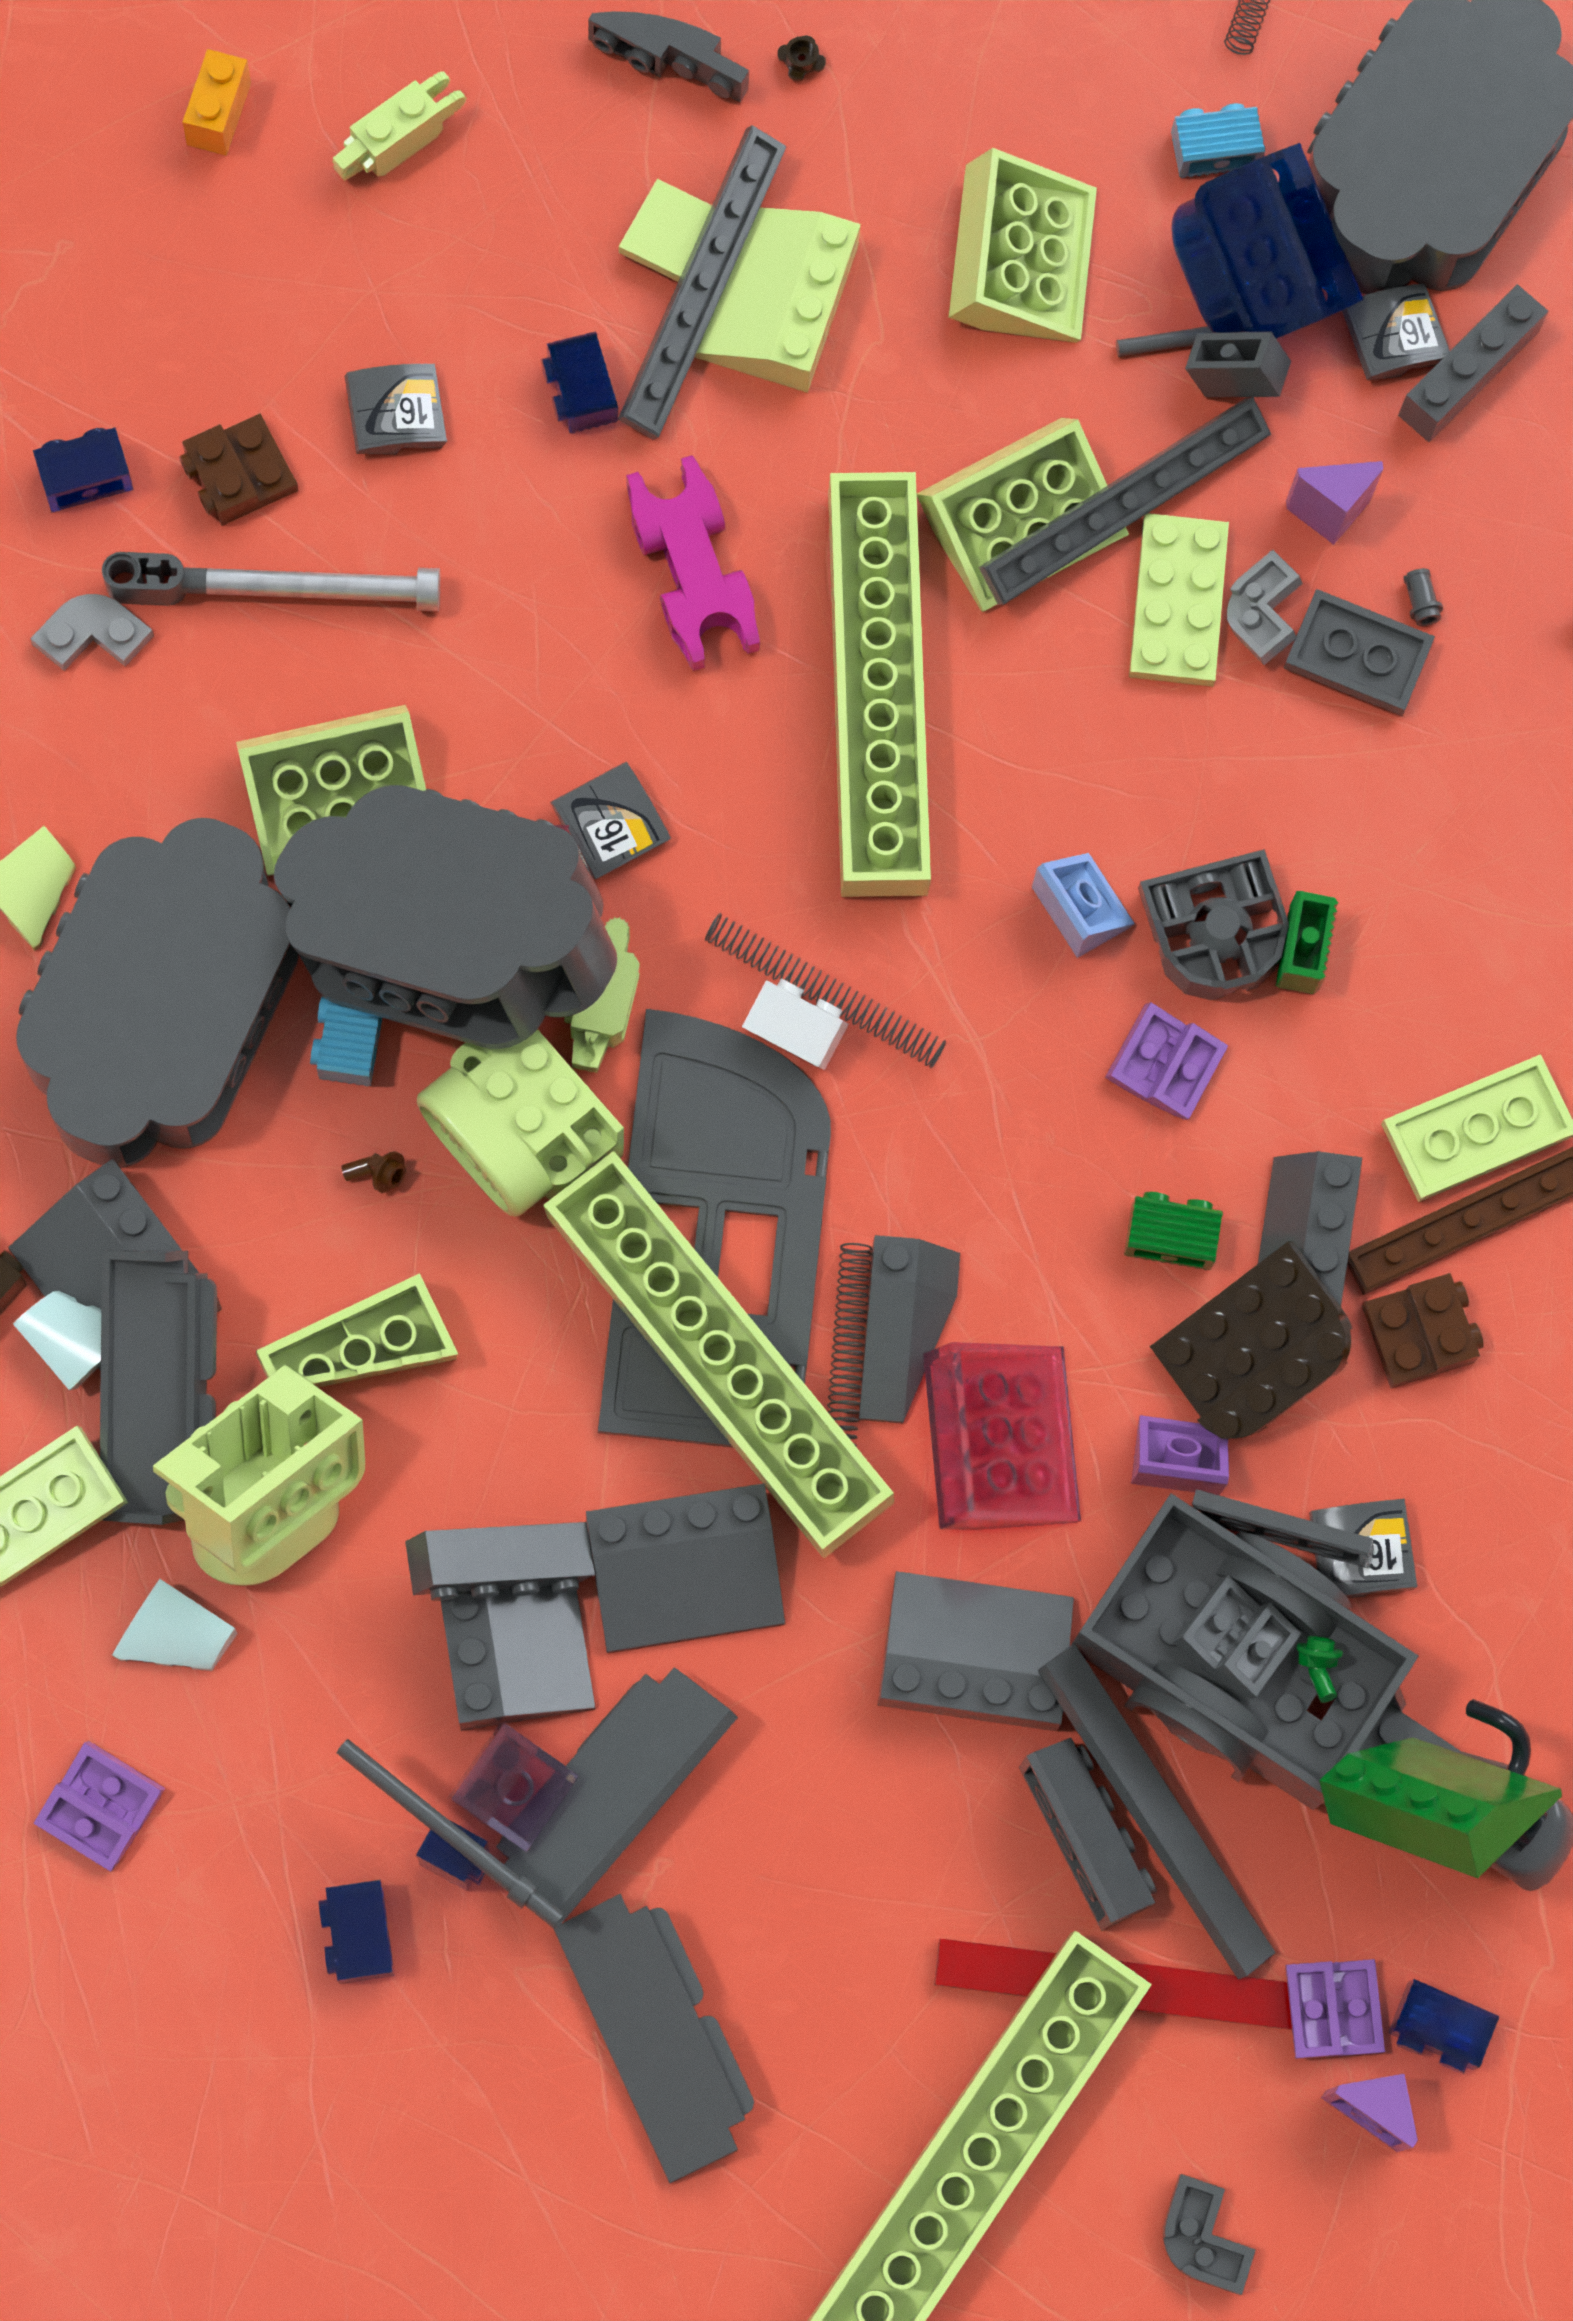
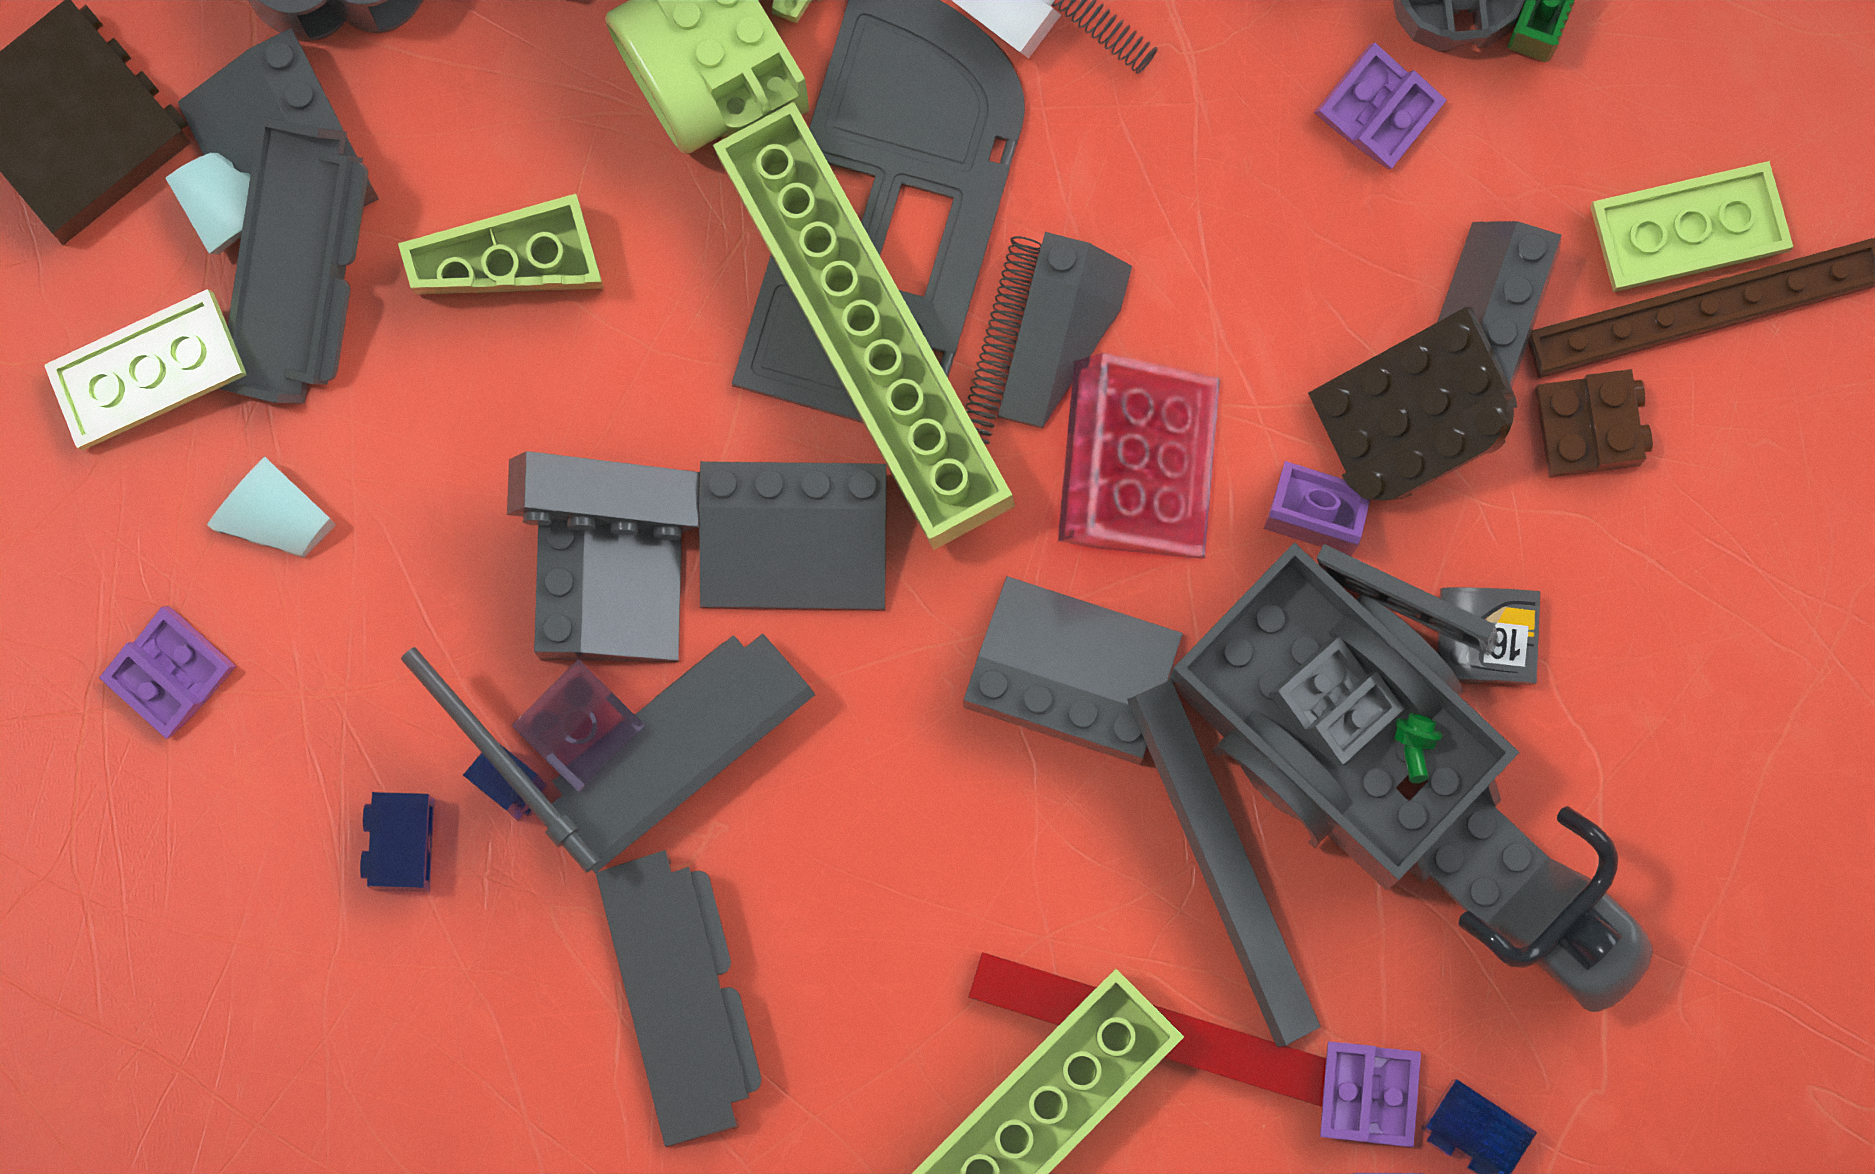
camera: 20 degrees right, 5 degrees up
(253, 1487) = (382, 373): yellowish green brick -> none
(386, 1170) = (565, 86): reddish brown plate -> none
(1086, 1832) = (1150, 872): dark grey slope -> none
(1173, 1231) = (1354, 279): green brick -> none
(1434, 1802) = (1505, 905): green slope -> none

